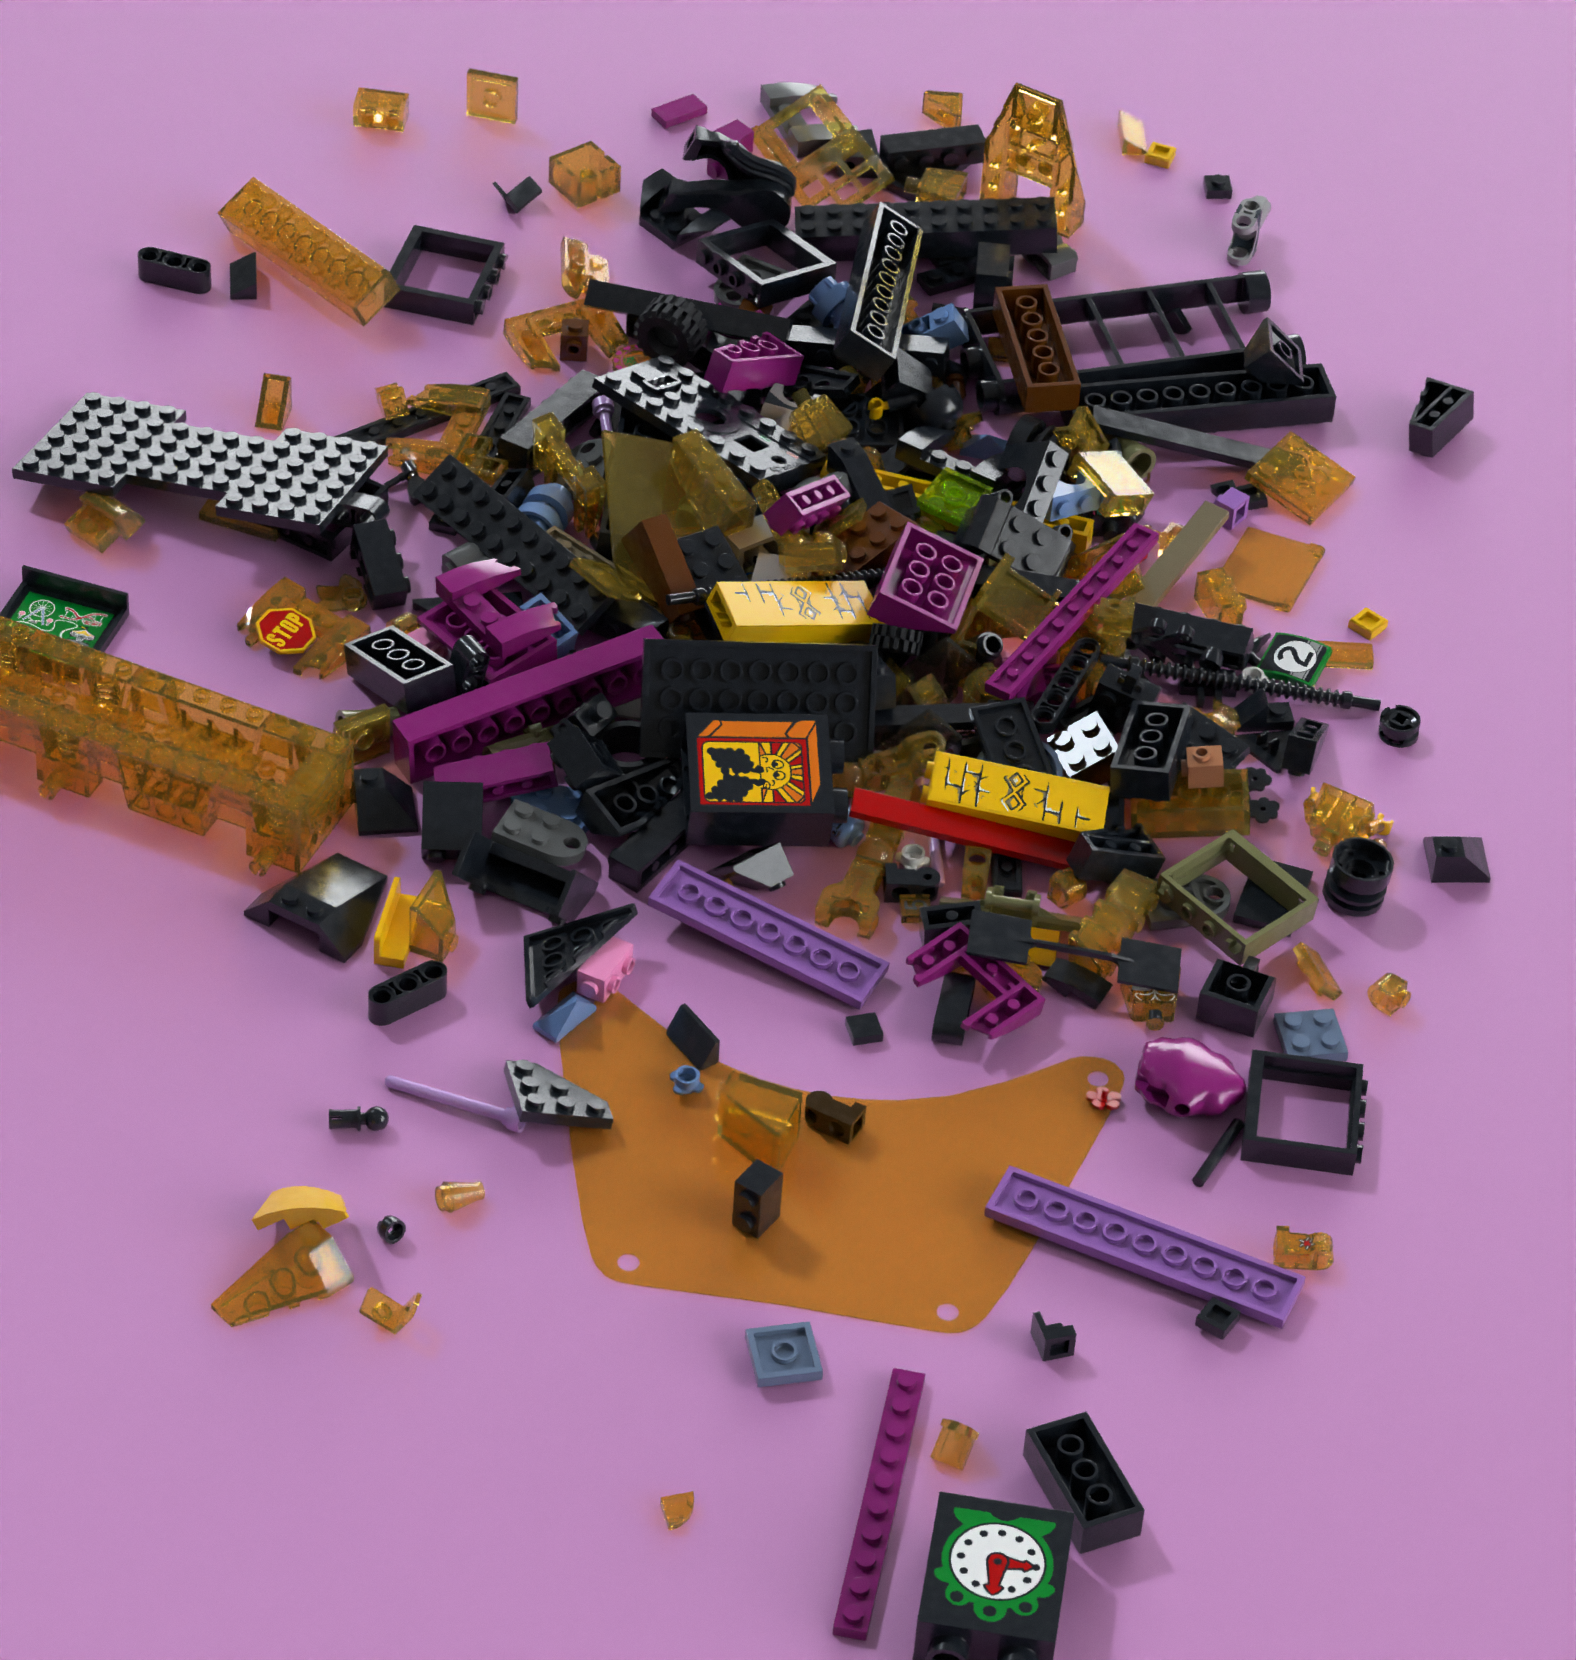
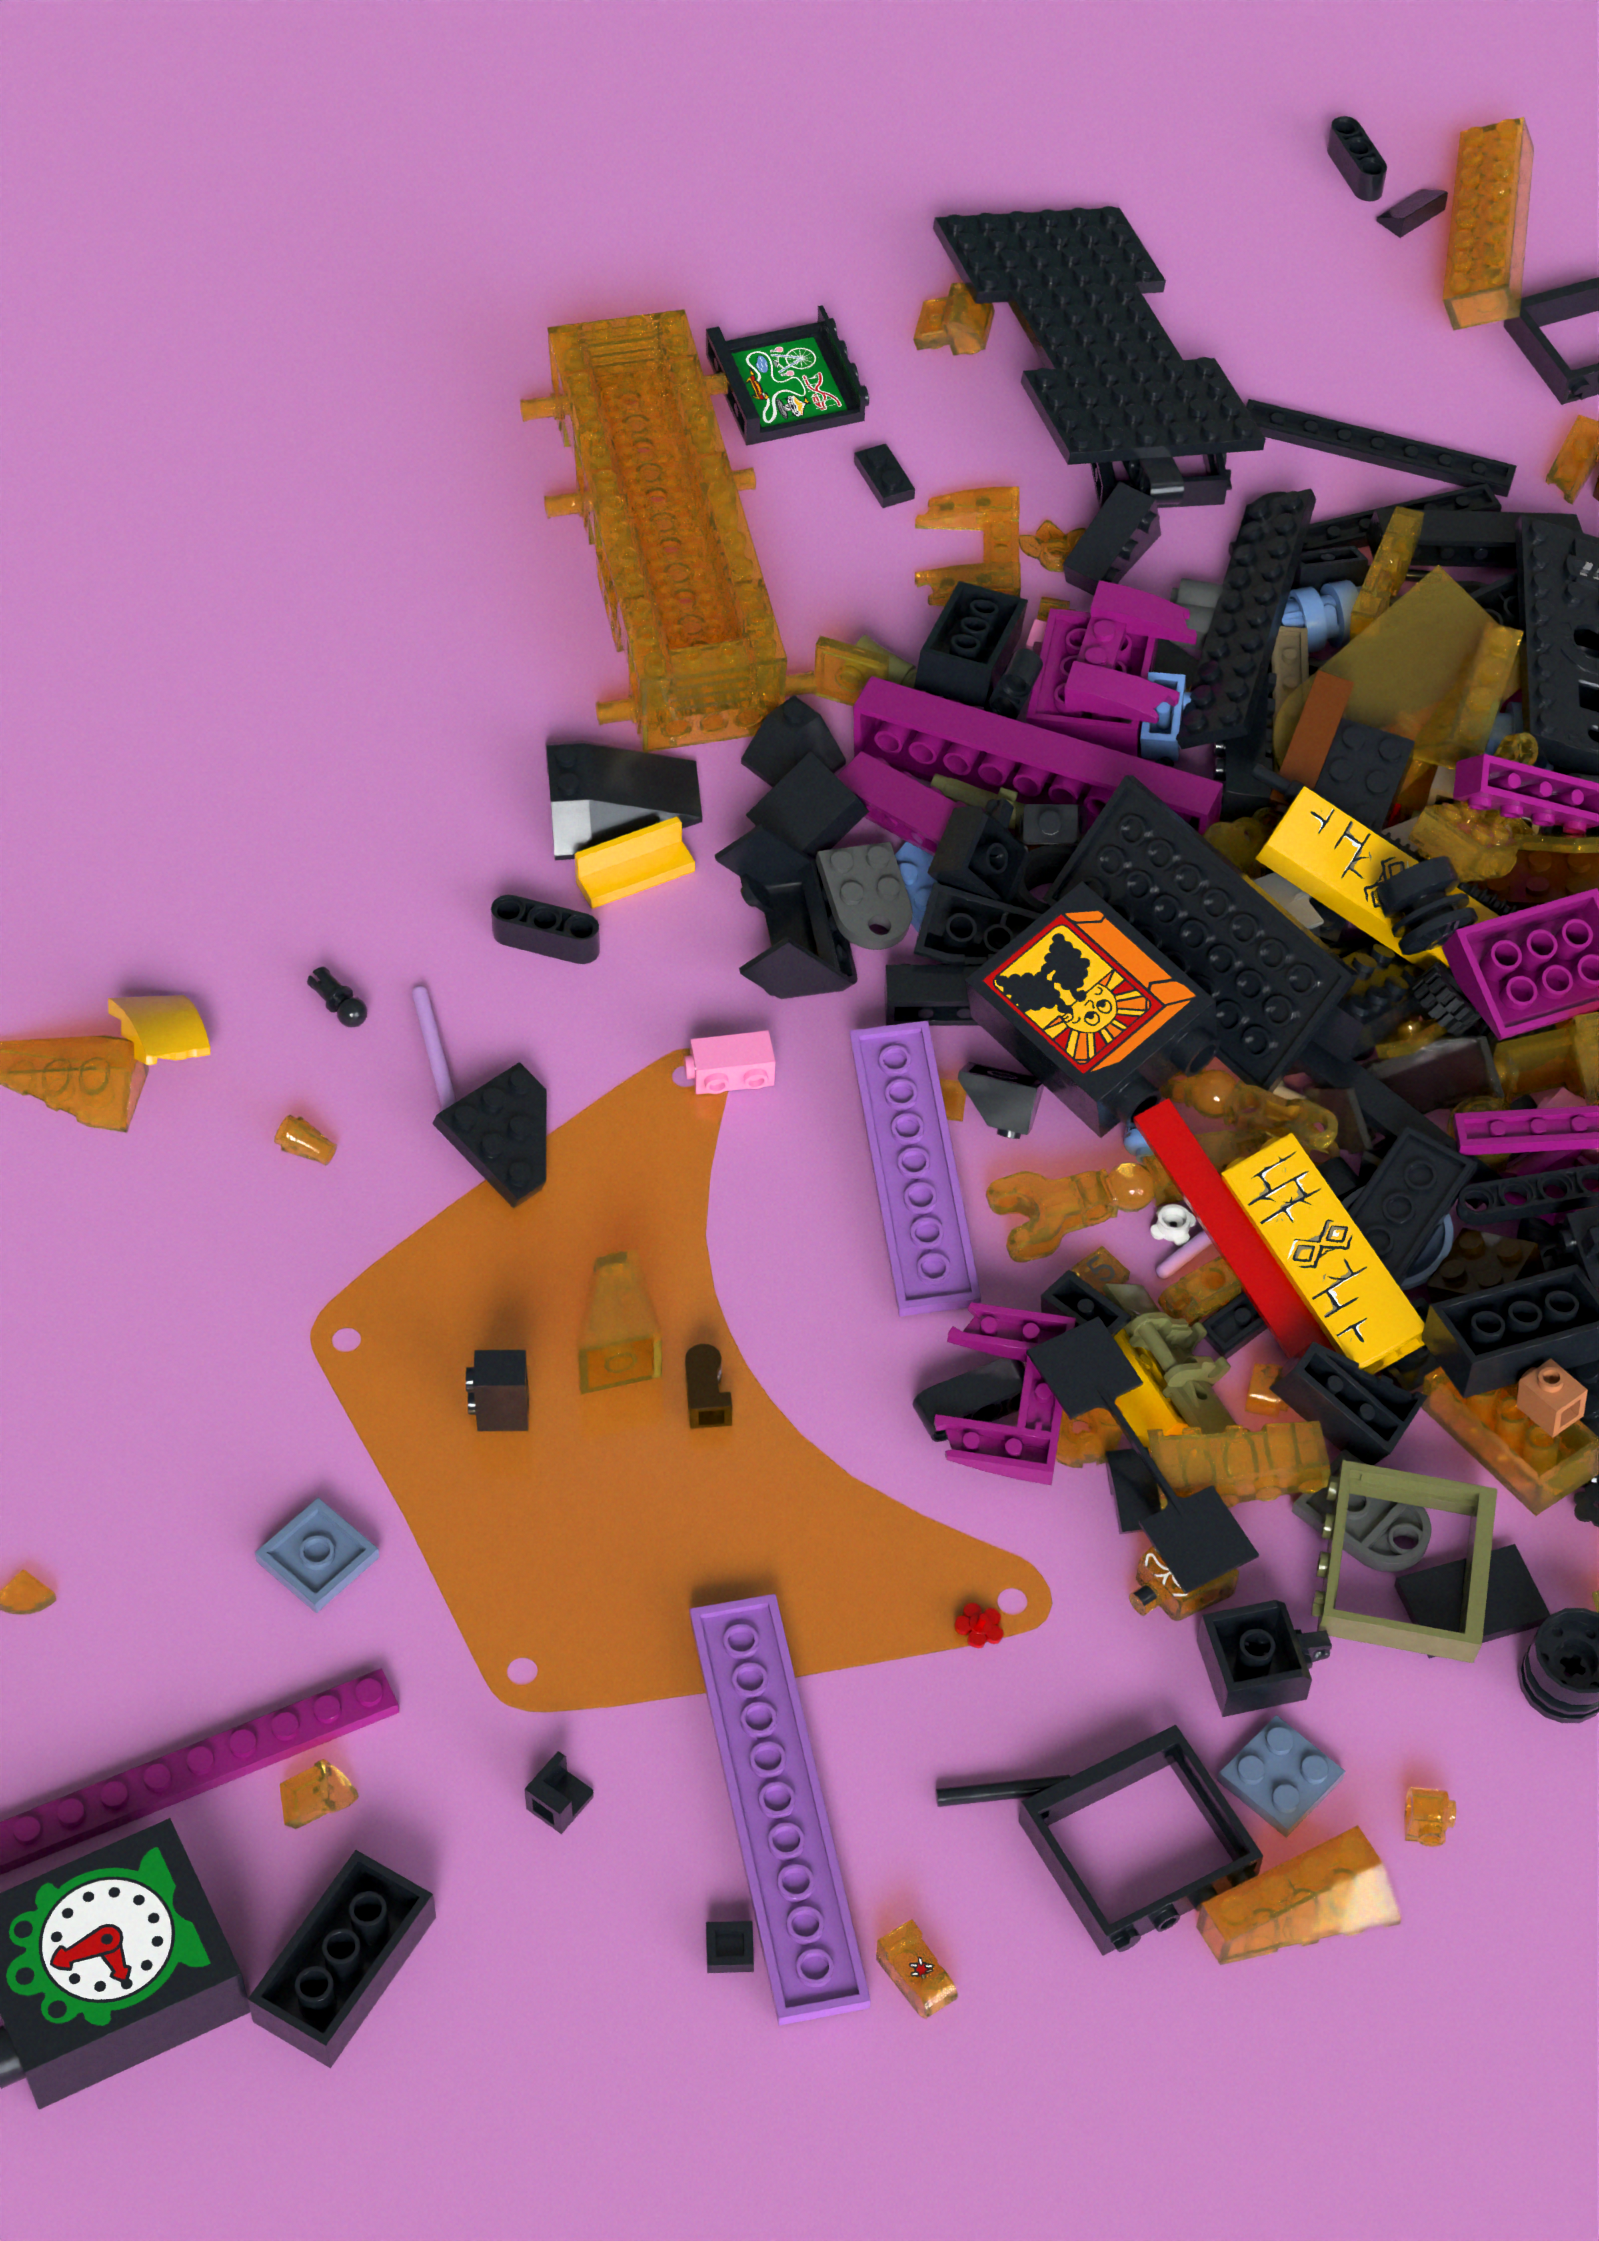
camera: 55 degrees right, 10 degrees up
(192, 632) = (884, 475): none -> black plate
(274, 402) = (1257, 335): clear yellow slope -> none
(285, 631) = (949, 534): piece -> none
(387, 1311) = (93, 1177): clear yellow bracket -> none
(392, 401) = (1359, 409): clear yellow leg -> none
(398, 1229) = (204, 1116): black hinge -> none
(408, 471) = (1286, 483): black hand -> none
(433, 921) = (657, 882): clear yellow slope -> none
(462, 402) = (1418, 469): clear yellow wedge -> none
(473, 454) = (1341, 515): clear yellow brick -> none
(560, 950) = (713, 1009): black tile -> none
(564, 1017) = (642, 1074): medium blue slope -> none
(606, 579) = (1242, 707): clear yellow tile -> none
(686, 1080) = (641, 1220): medium blue plate -> none
(694, 1038) = (706, 1199): black slope -> none
(847, 594) = (1422, 899): none -> black wheel
(864, 1029) = (872, 1337): black tile -> none
(909, 881) = (1125, 1243): black leg -> none
(927, 691) = (1418, 1084): clear yellow brick -> none
(988, 646) = (1541, 1095): black brick -> none
(1187, 1078) = (1072, 1686): magenta piece -> none
(1313, 965) = (1387, 1718): clear yellow plate -> none
(1399, 1066) = (1307, 1898): none -> clear yellow wedge

